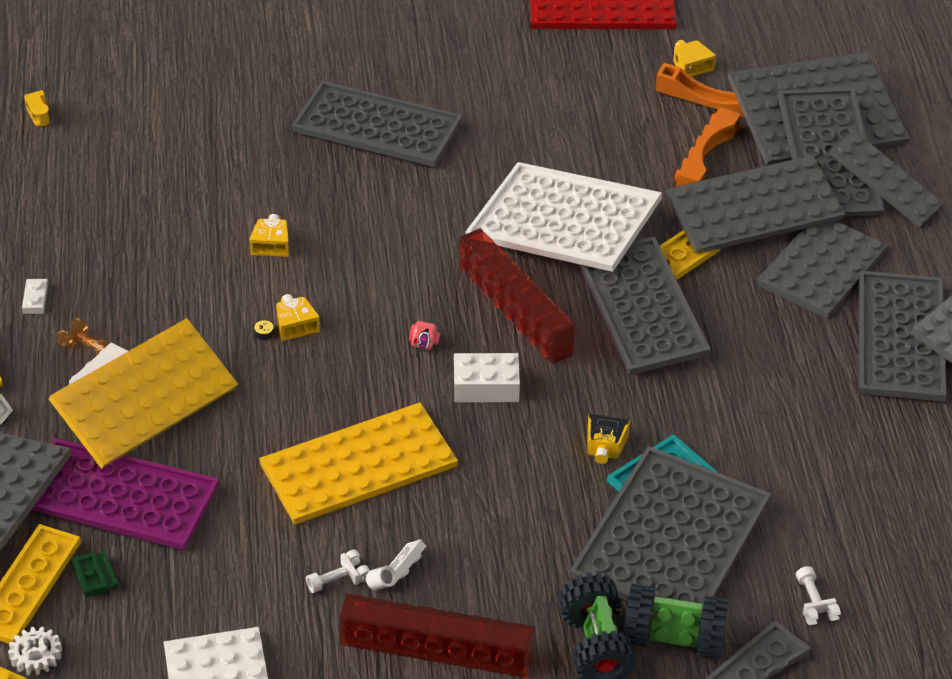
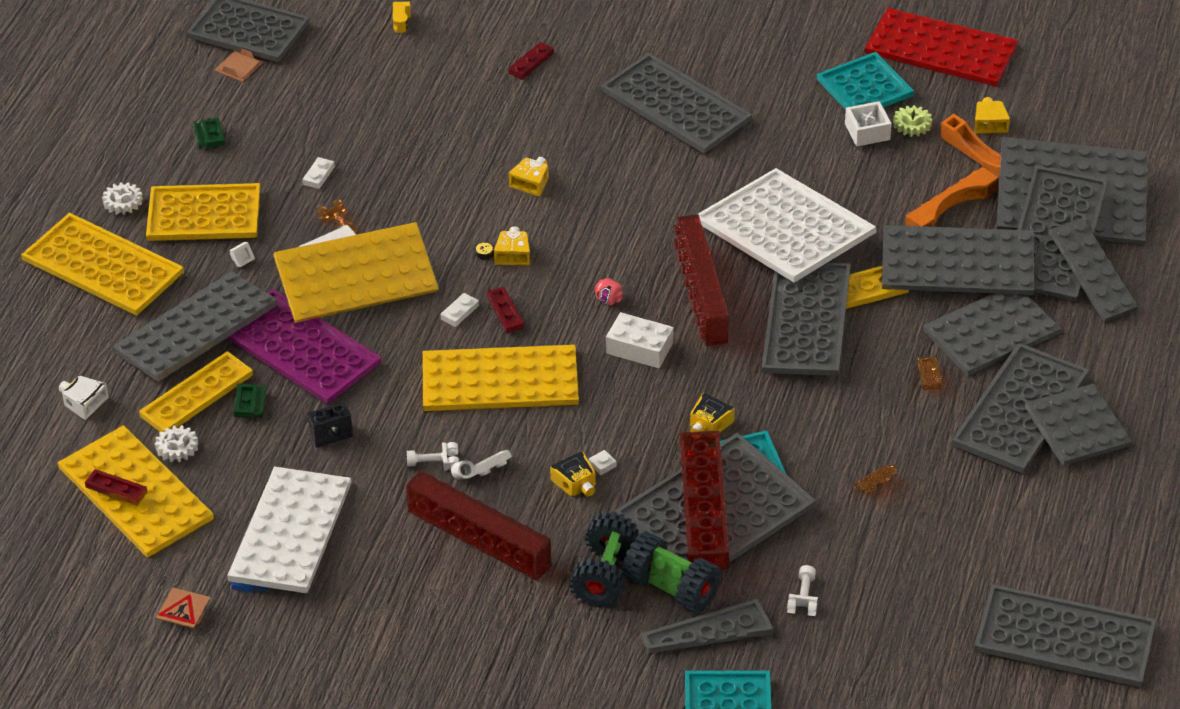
camera: 25 degrees right, 0 degrees up
(201, 119) = (531, 60): none -> dark red plate
(205, 572) = (330, 424): none -> black brick
(273, 401) = (459, 309): none -> white plate
(324, 386) = (505, 310): none -> dark red plate
(504, 545) = (574, 475): none -> torso
(521, 522) = (602, 462): none -> white plate
(553, 58) = (865, 82): none -> teal plate
(582, 94) = (868, 123): none -> white brick
(621, 81) = (912, 121): none -> yellowish green gear
(664, 528) = (704, 497): none -> clear red brick
(793, 326) = (929, 373): none -> clear orange plate
(810, 451) = (881, 475): none -> clear orange plate

